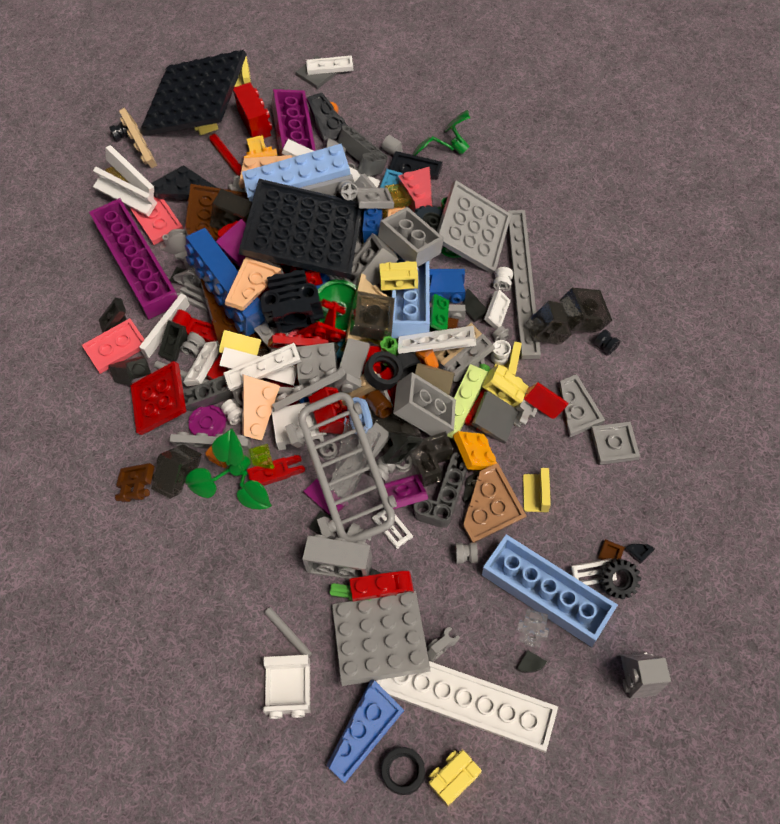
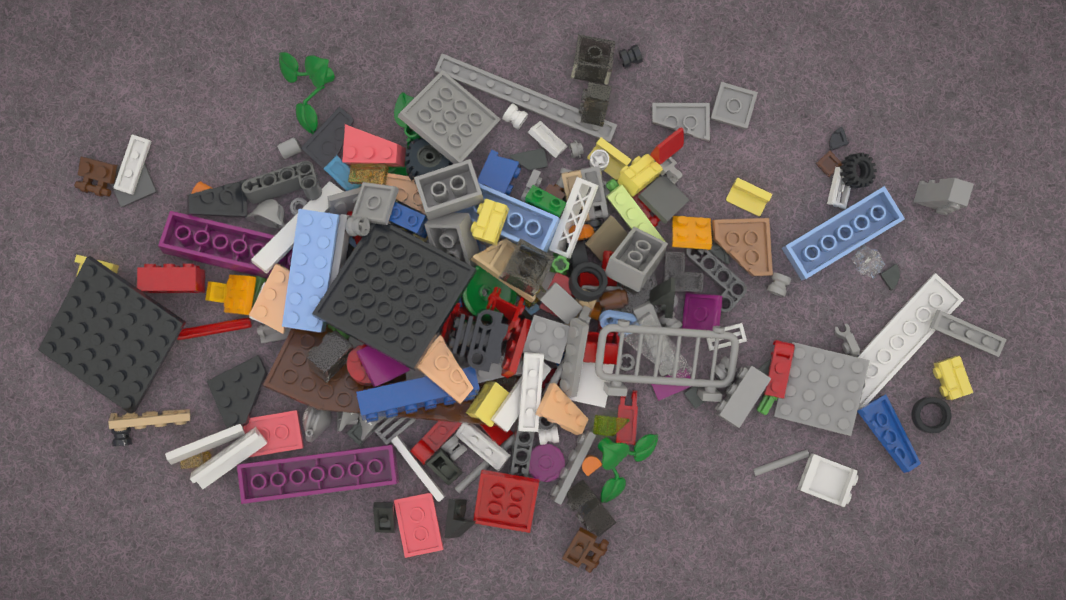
camera: 65 degrees left, 25 degrees up
(313, 50) = (96, 170): none -> reddish brown plate
(511, 772) = (967, 333): none -> light grey plate

